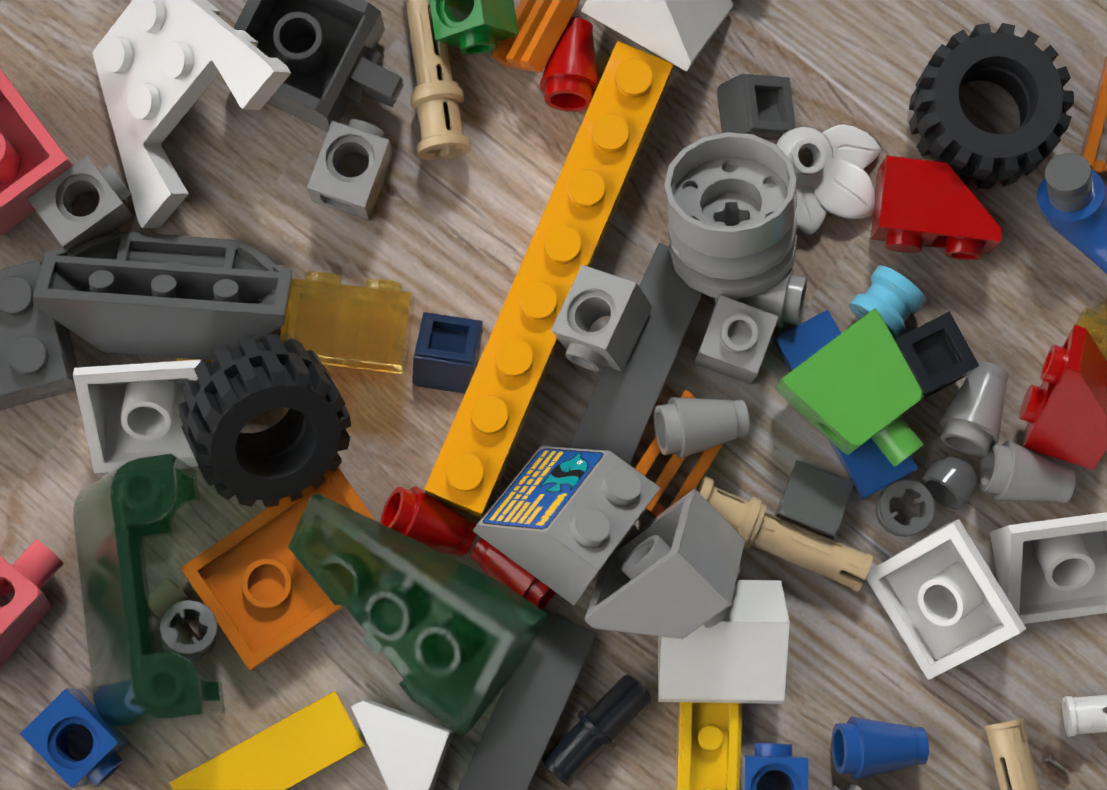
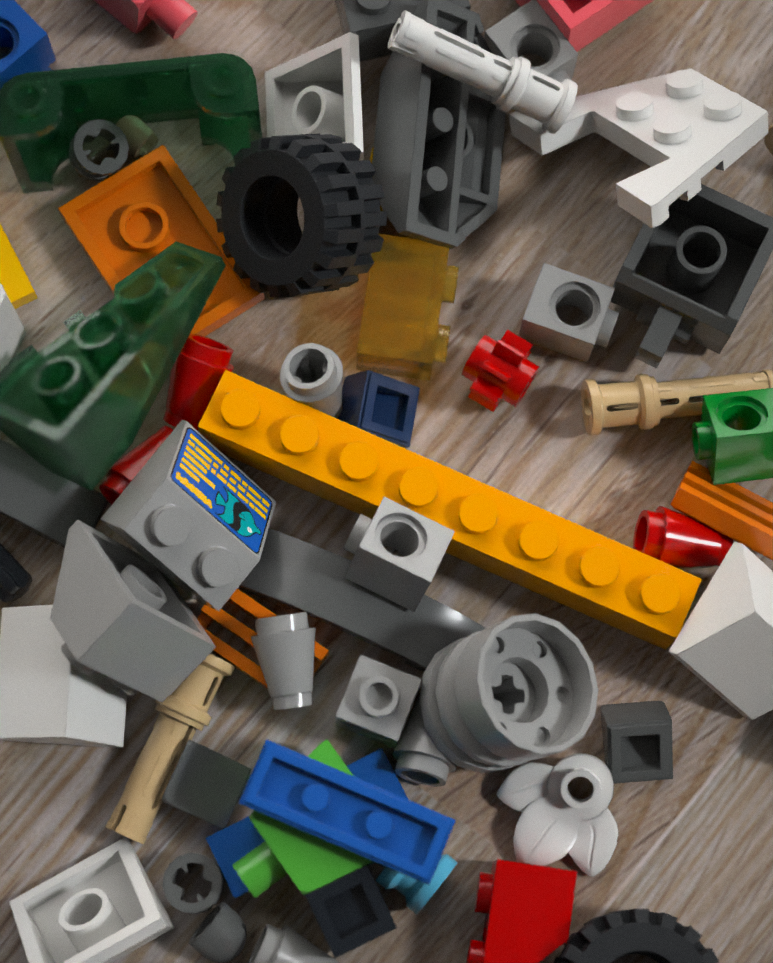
camera: 90 degrees right, 5 degrees down
(125, 219) = (509, 82): none -> white pin
(411, 231) = (500, 370): none -> red gear
(416, 410) = (314, 377): none -> light grey cone
(850, 356) = (347, 812): none -> blue tile

